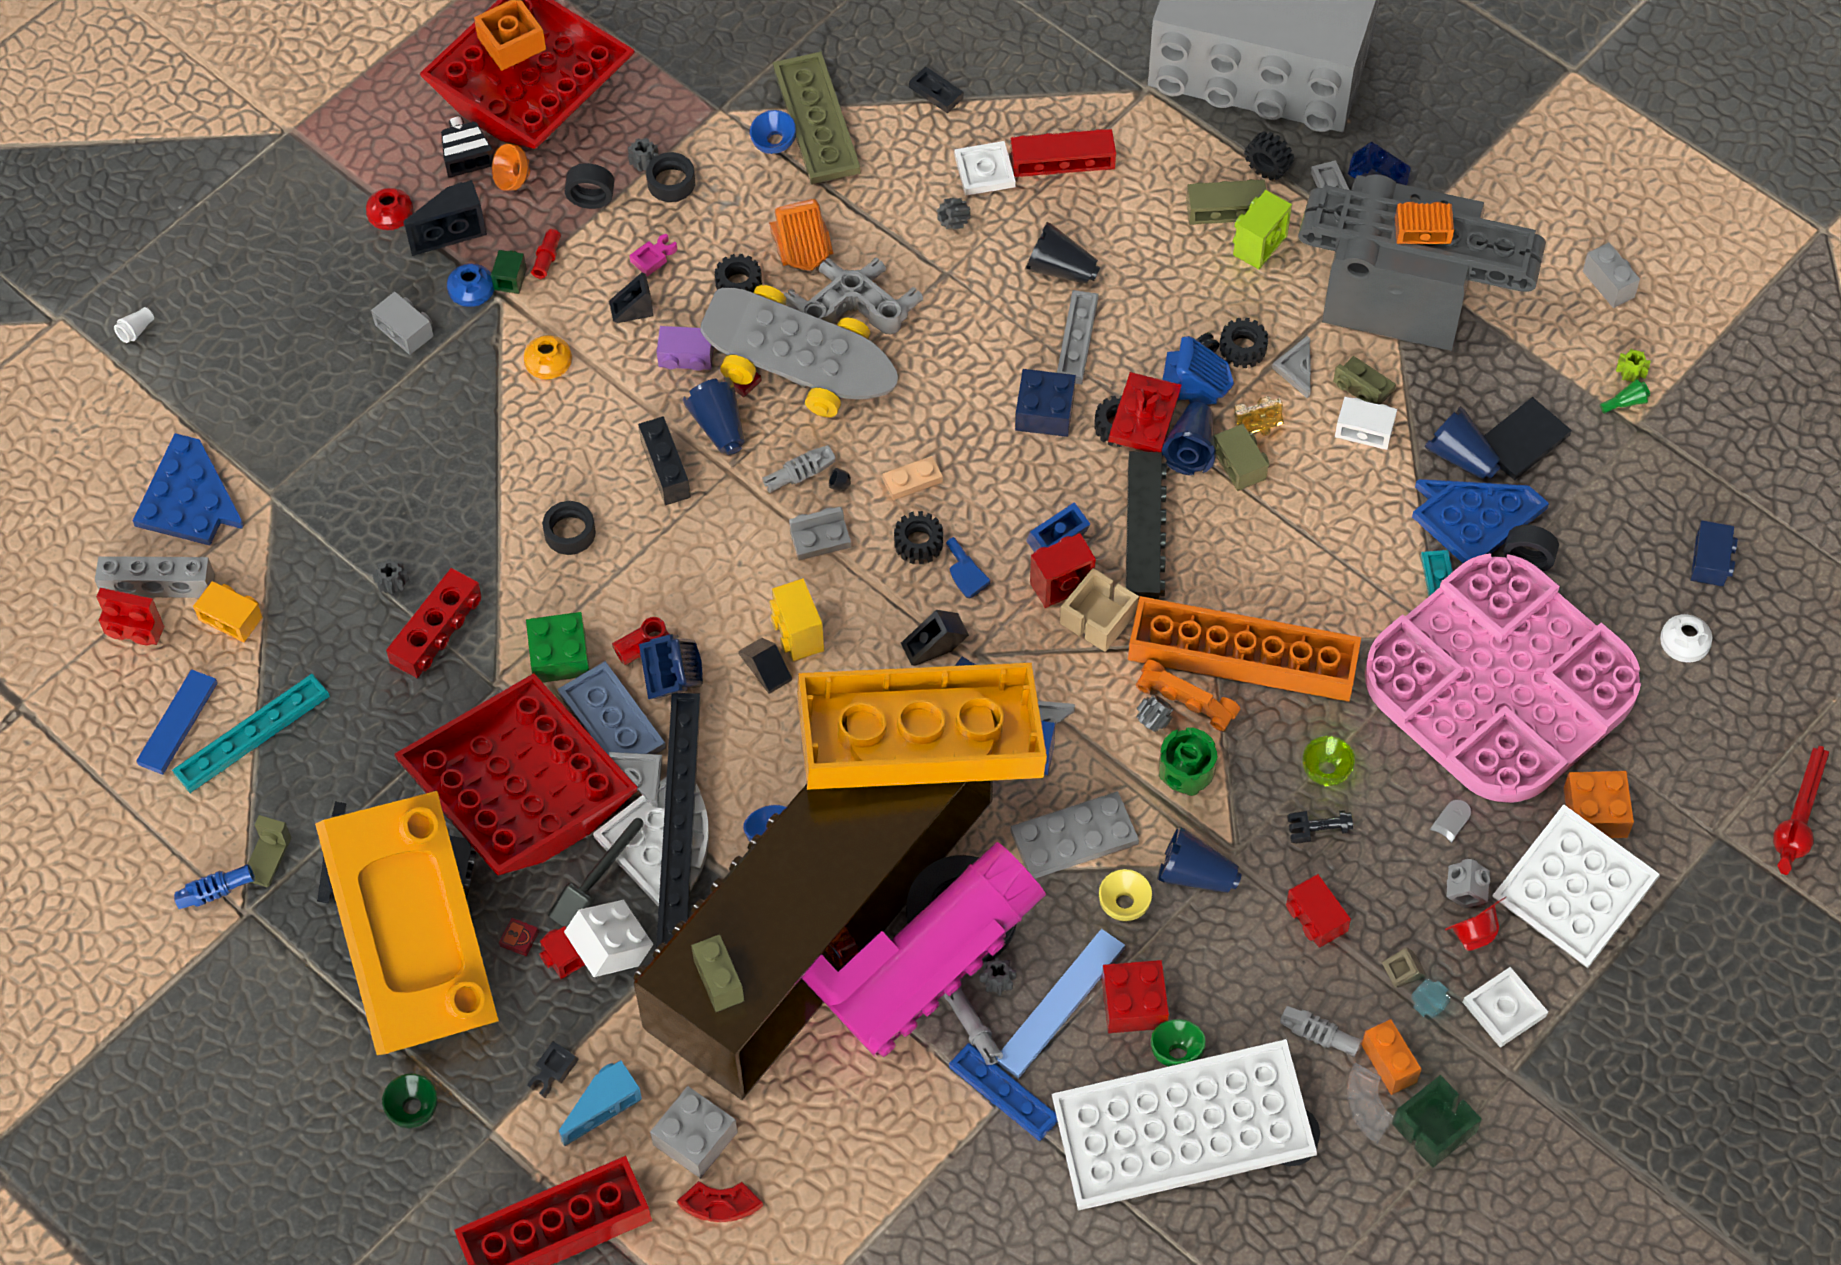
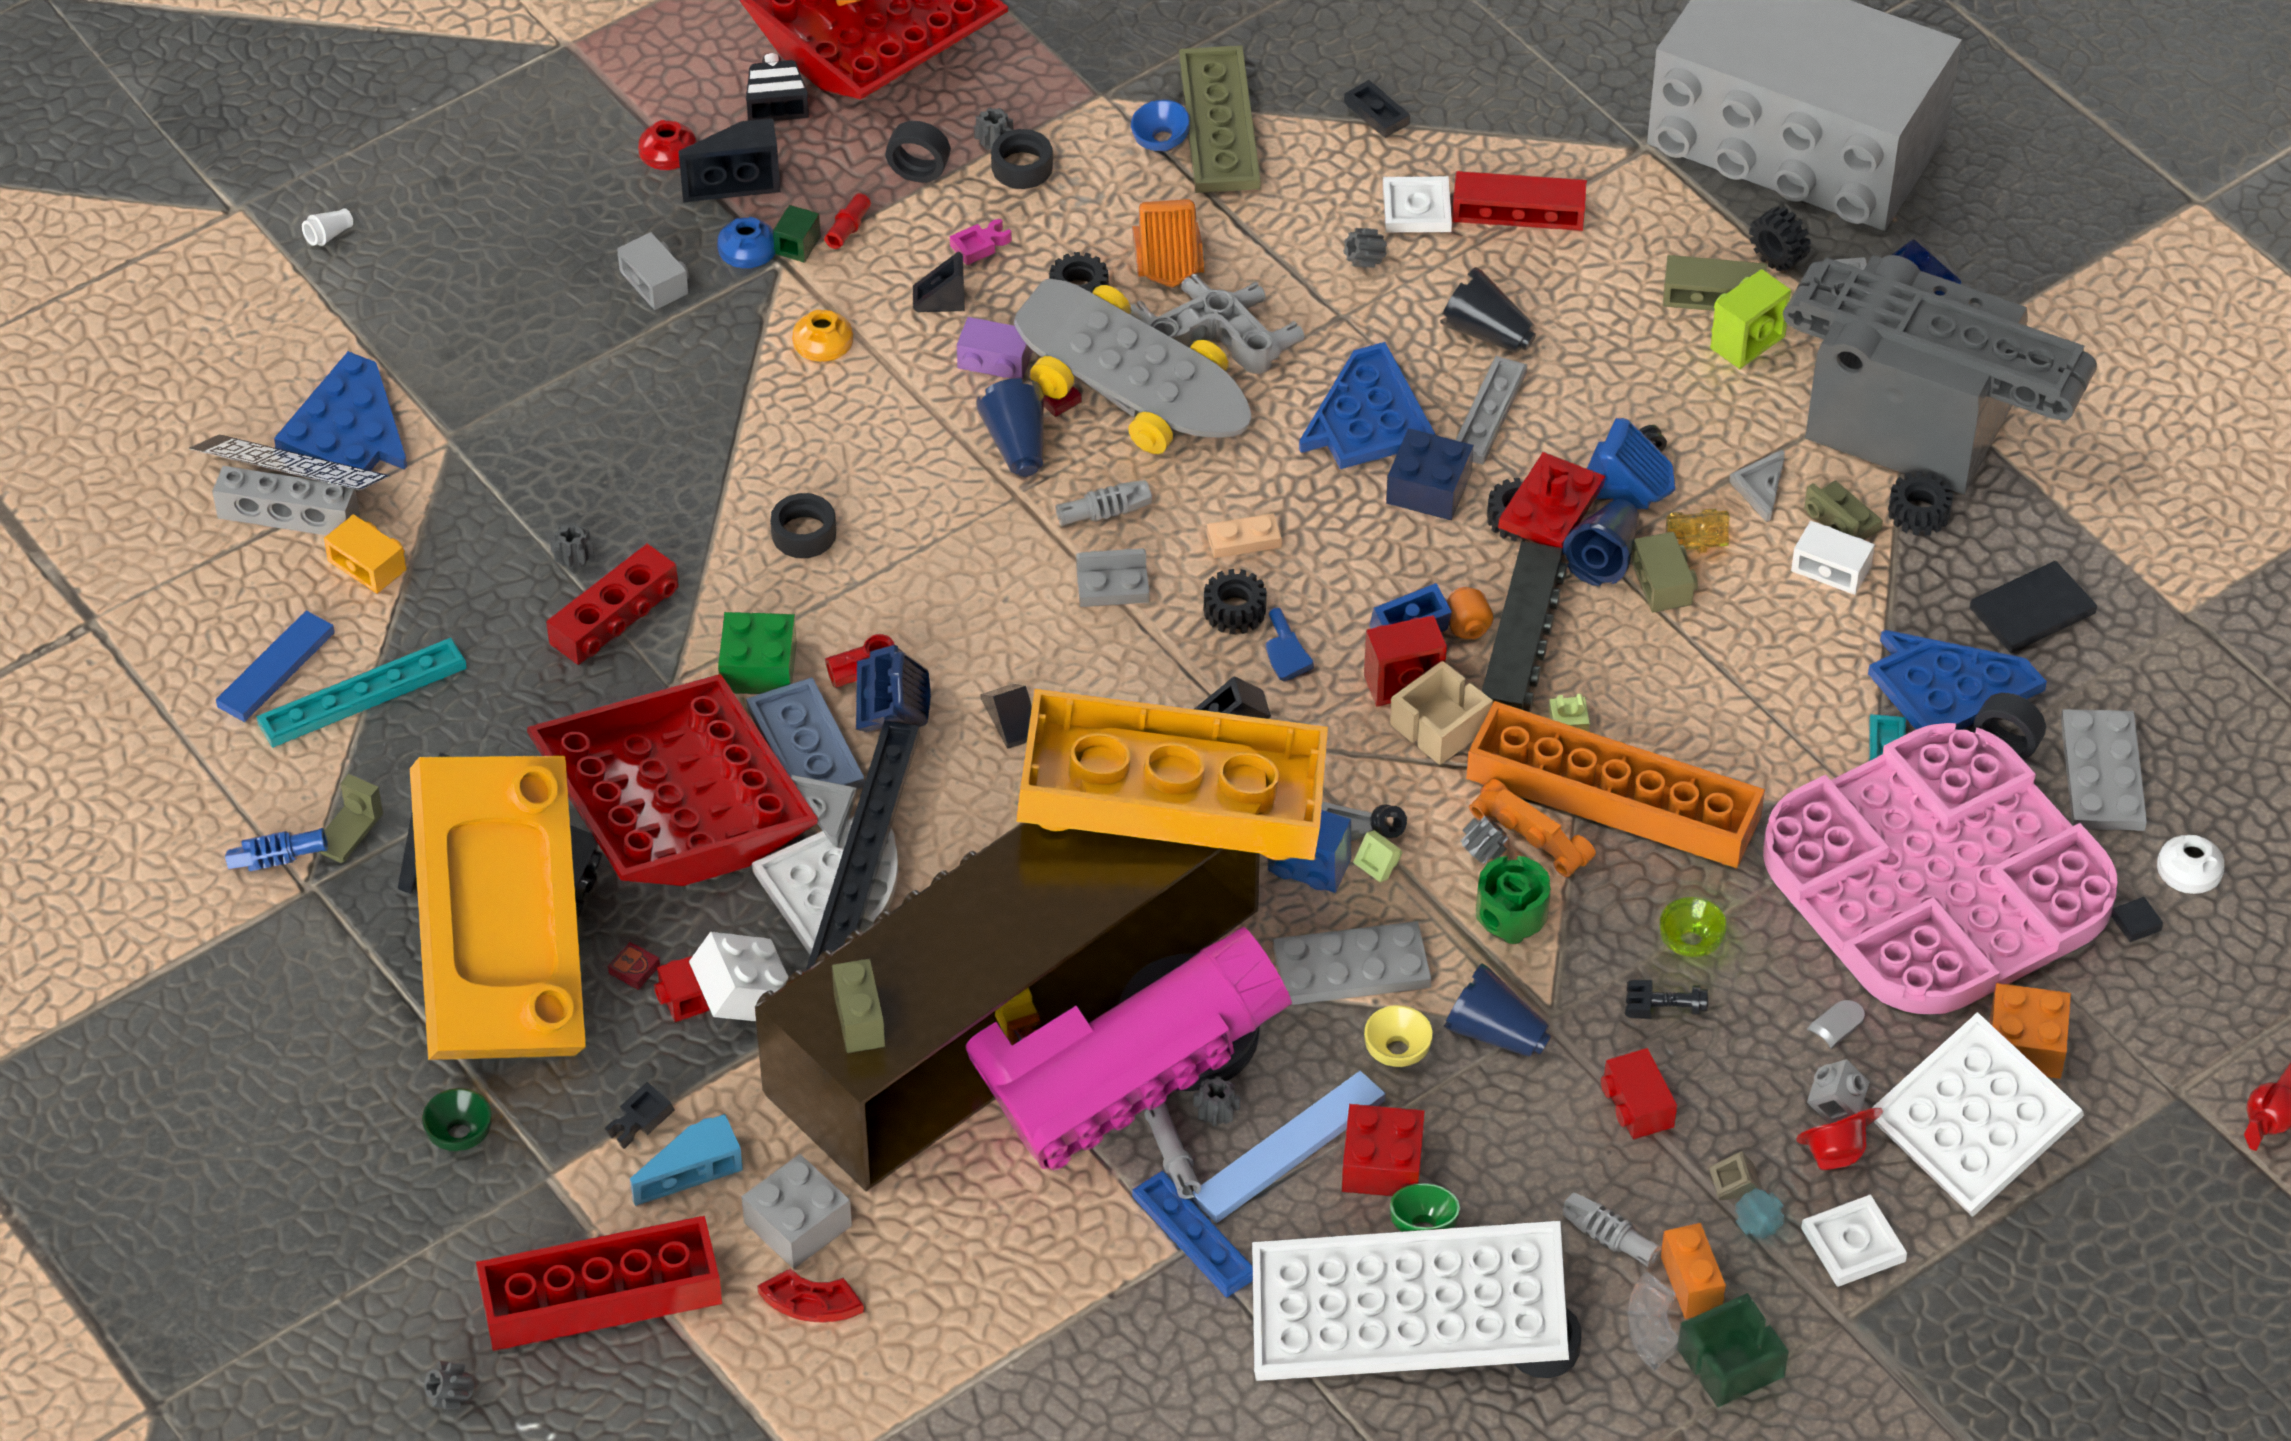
camera: 10 degrees right, 10 degrees down
(129, 617) = (245, 537): red plate -> none
(150, 541) = (289, 462): none -> sticker
(506, 167) = (826, 118): orange piece -> none
(575, 897) = (711, 923): pearl dark grey piece -> none
(664, 460) = (938, 468): black brick -> none
(797, 620) = (1059, 655): yellow brick -> none
(839, 480) = (1152, 523): black hinge -> none
(985, 354) = (1365, 410): none -> blue wing
(1070, 707) = (1399, 820): none -> black bush
(1075, 741) = (1377, 856): none -> yellowish green tile
(1102, 518) = (1470, 613): none -> orange head
(1194, 591) = (1570, 711): none -> yellowish green tile
(1241, 355) = (1700, 431): black tyre -> none
(1424, 223) = (1941, 314): orange brick -> none
(1425, 353) = (1920, 517): none -> black tyre
(1464, 446) = (1951, 598): dark blue cone -> none
(1605, 569) = (2103, 769): none -> light grey plate
(1611, 275) = (2190, 436): light grey brick -> none
(1633, 365) = (2194, 544): lime gear -> none
(1633, 394) = (2185, 577): green cone -> none
(1657, 692) = (2137, 919): none -> black tile
(1713, 553) = (2246, 771): dark blue brick -> none

